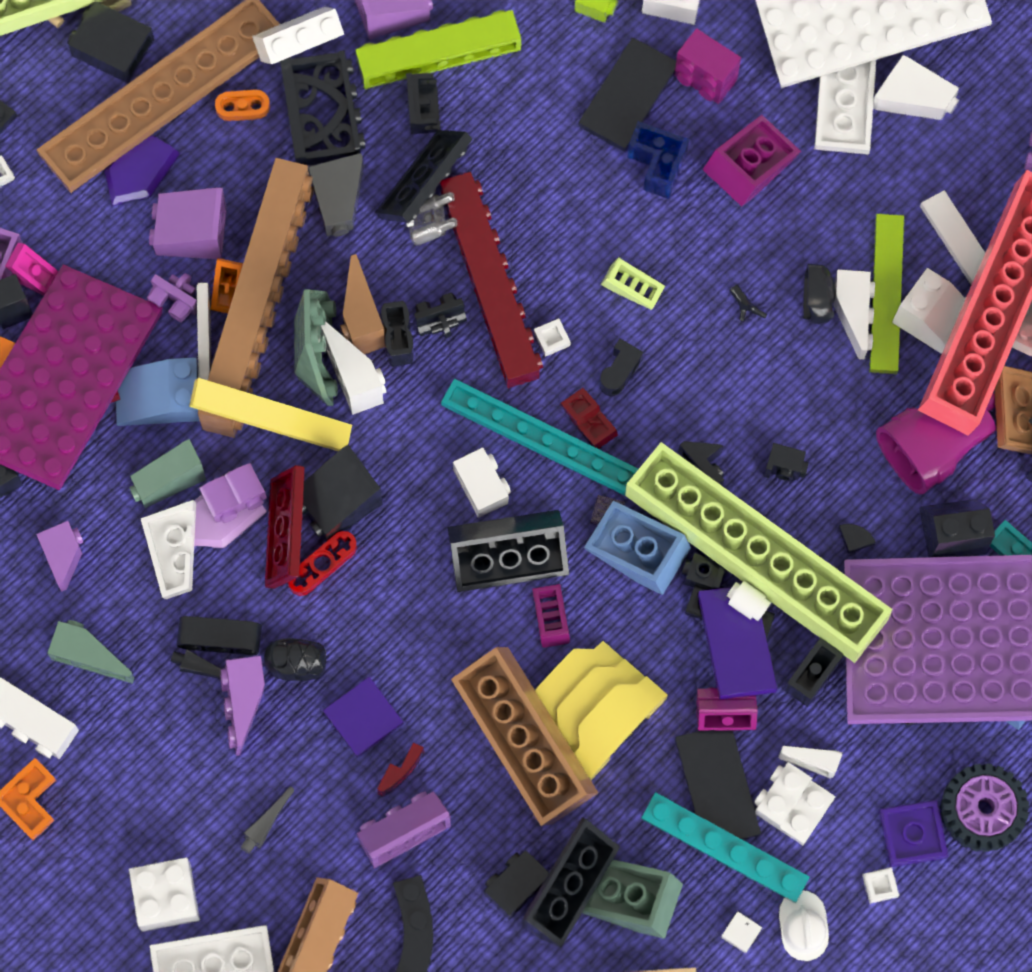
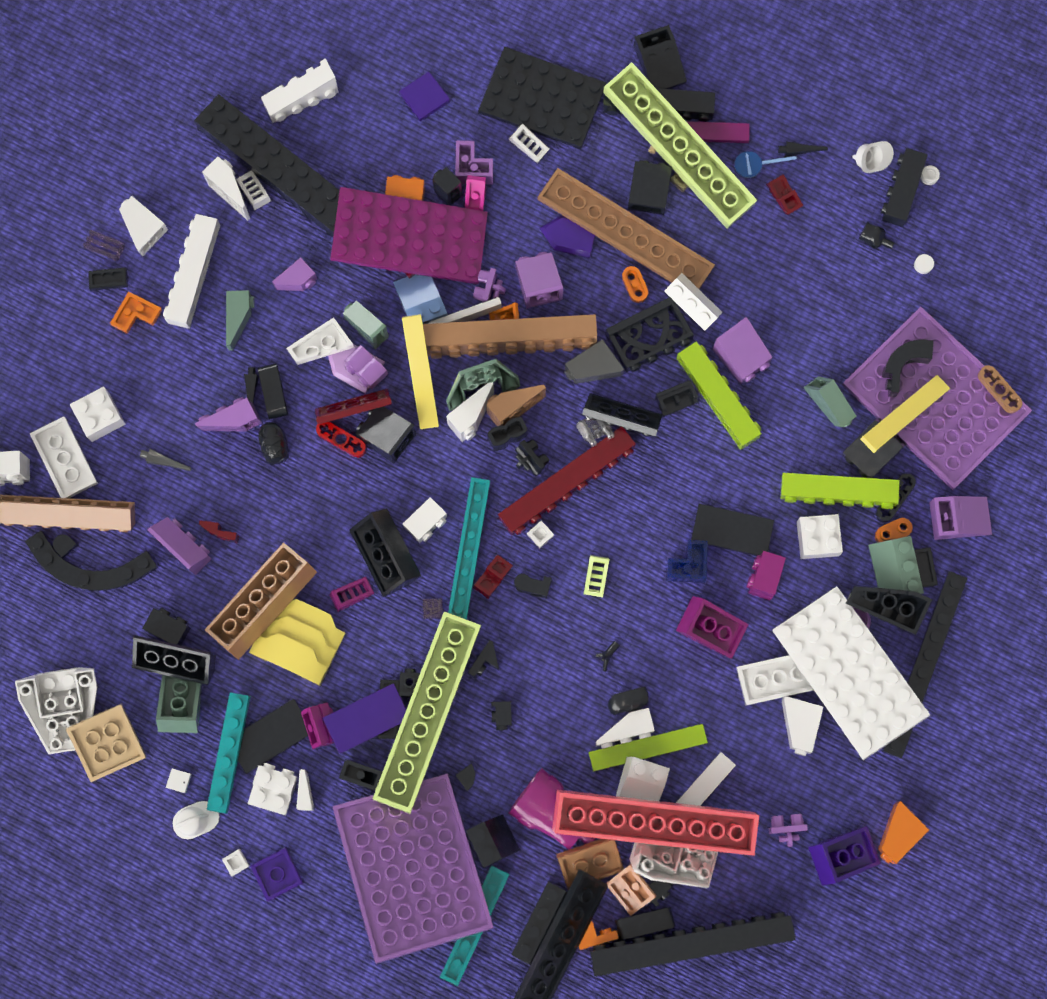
camera: 75 degrees right, 5 degrees up
(363, 717) = (248, 497): dark purple tile -> none
(639, 547) = (411, 634): medium blue slope -> none
(748, 600) = (393, 716): white brick -> none
(996, 788) = (290, 916): wheel -> none

